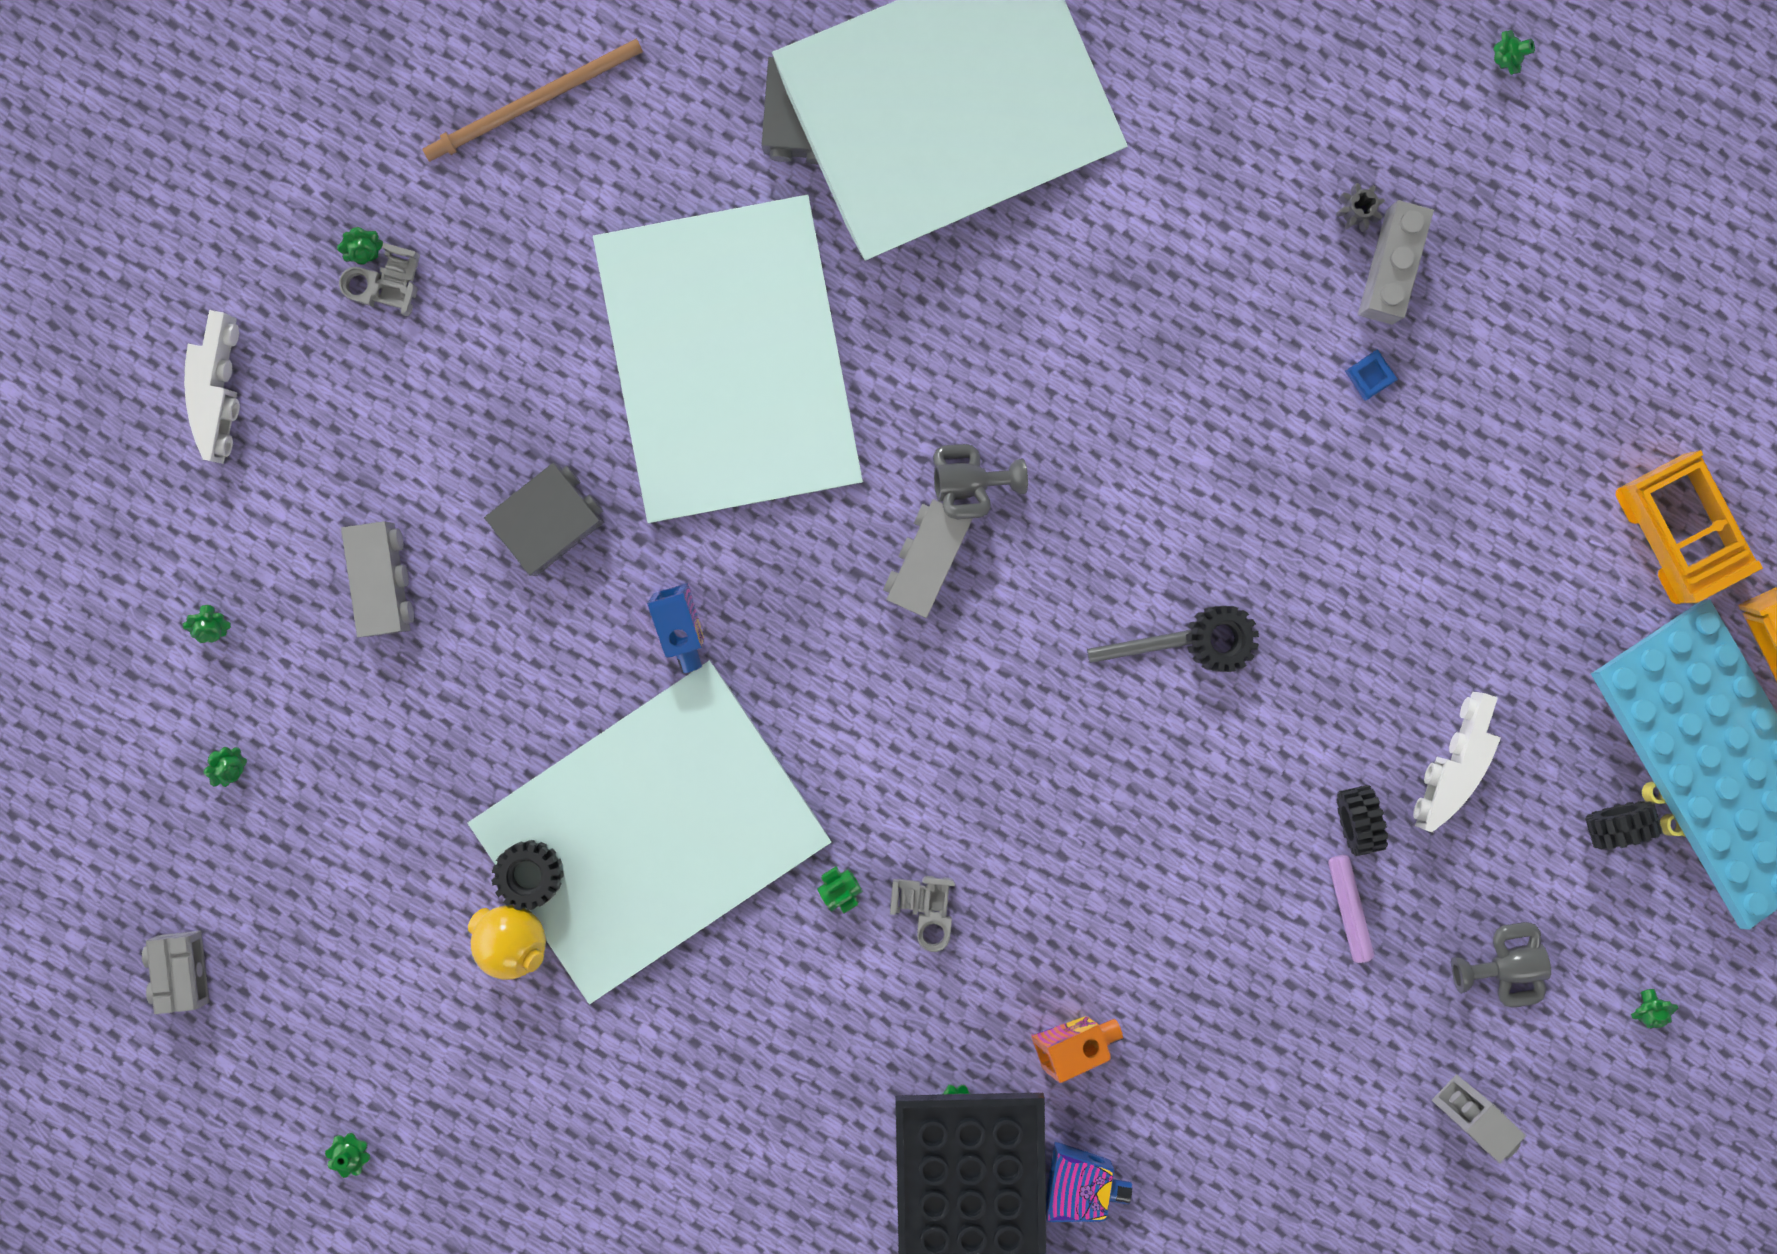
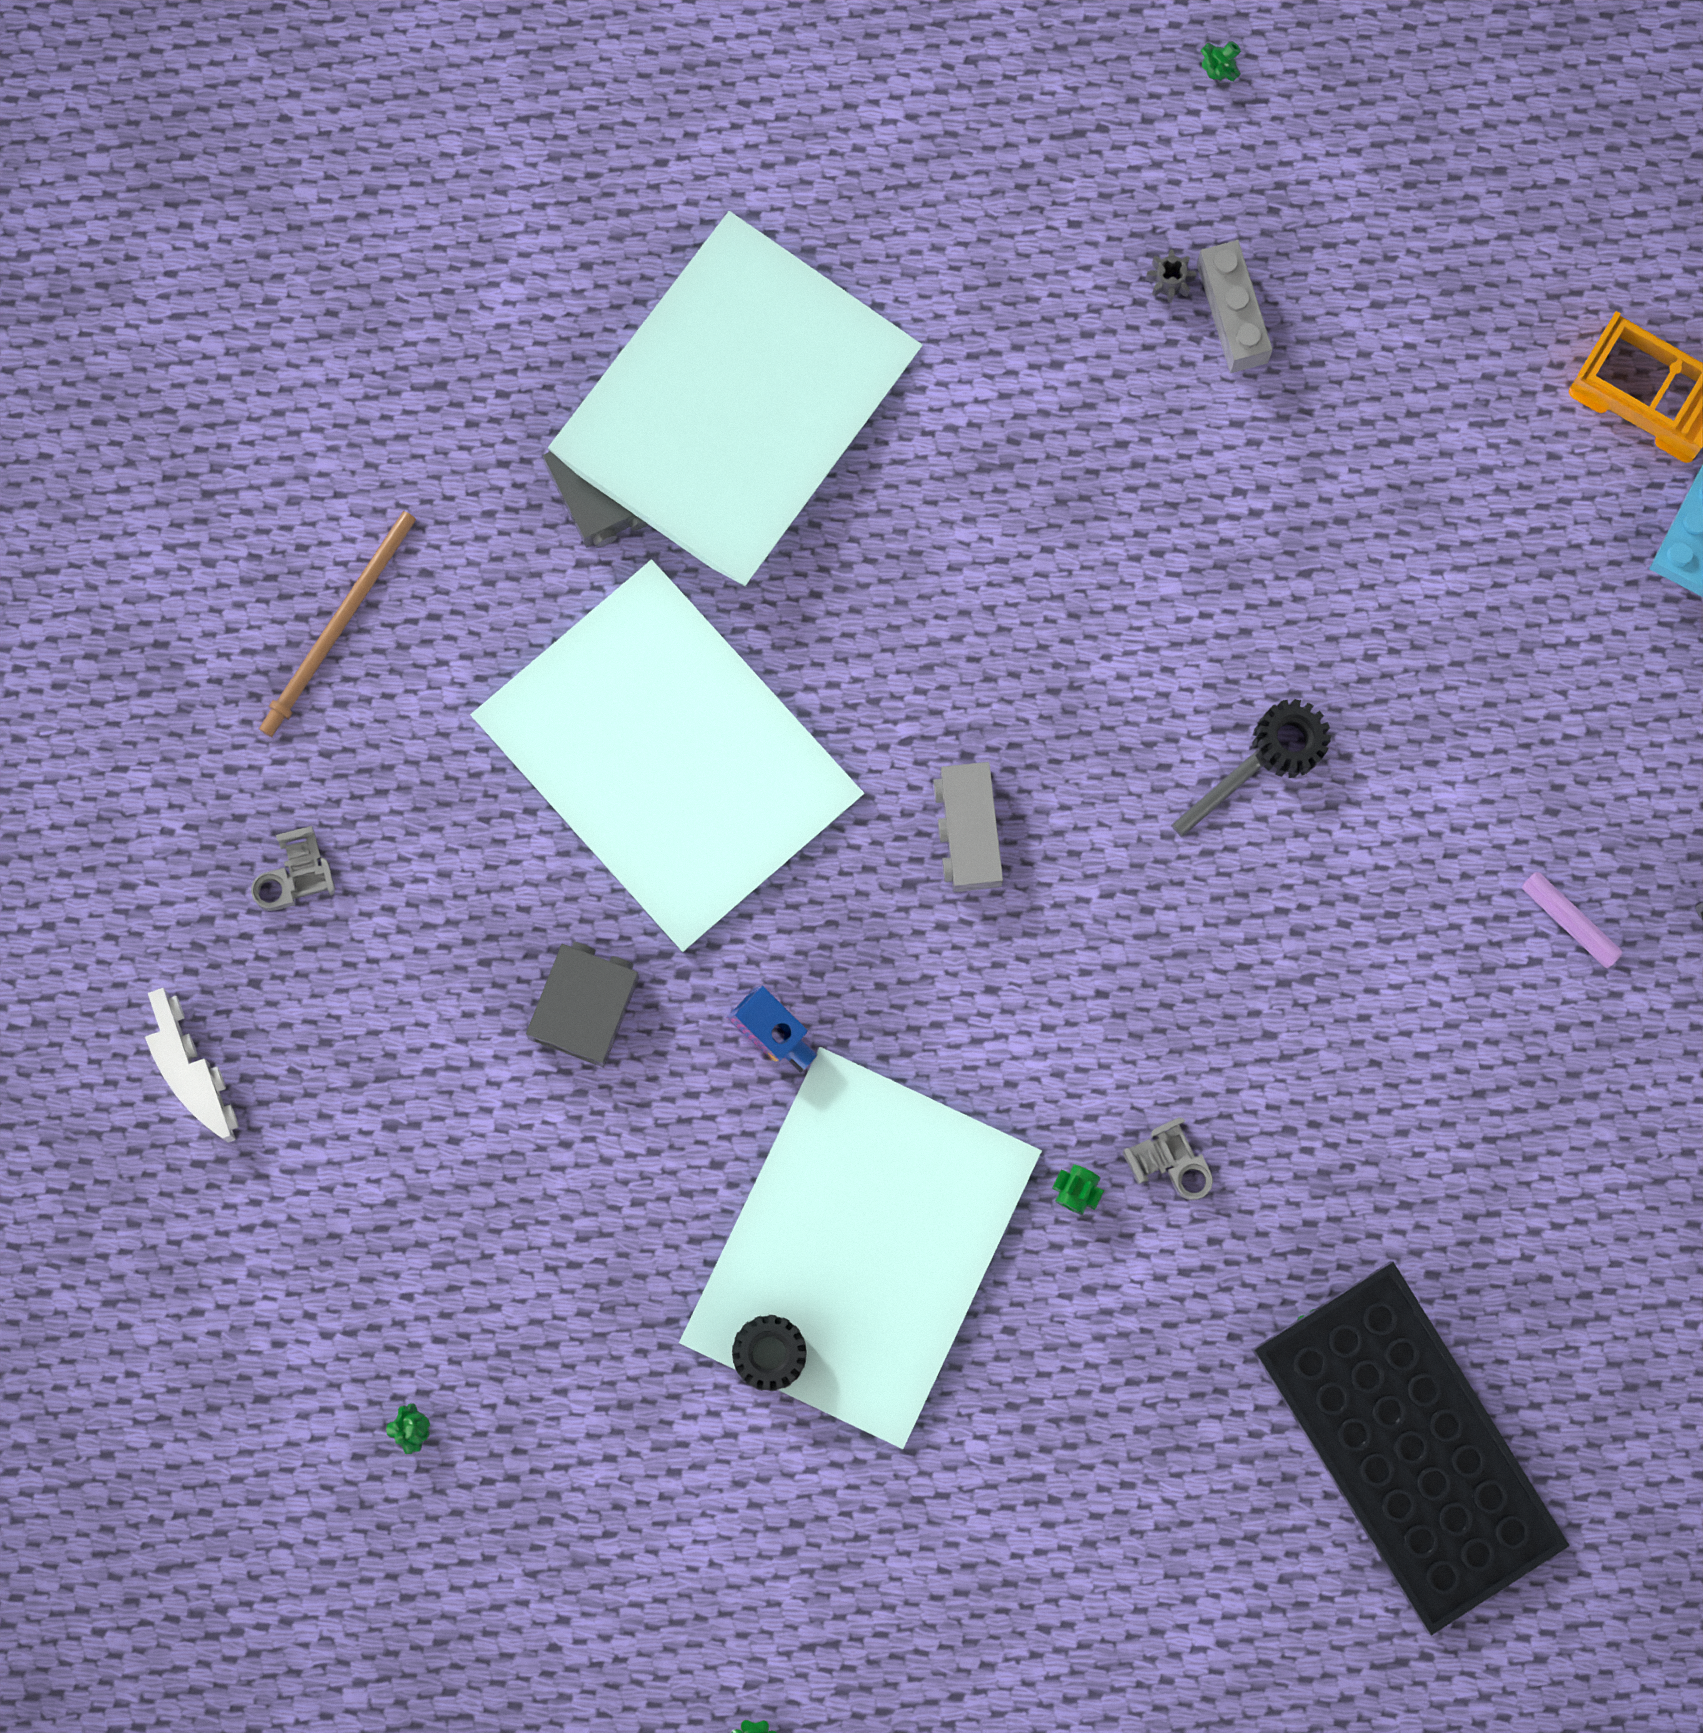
camera: 25 degrees left, 10 degrees down
(176, 972) = (477, 1661): light grey brick -> none
(206, 625) = (312, 1301): green plant -> none
(360, 246) = (253, 852): green plant -> none
(377, 579) = (455, 1157): light grey brick -> none
(507, 941) = (788, 1429): yellow brick -> none
(969, 480) = (963, 731): dark grey piece -> none
(1075, 1046) = (1393, 1202): orange torso -> none
(1082, 1186) = (1486, 1335): torso -> none
(1362, 820) = (1526, 827): black tyre -> none
(1371, 375) = (1277, 419): blue tile -> none
(1456, 779) = (1588, 739): white slope -> none

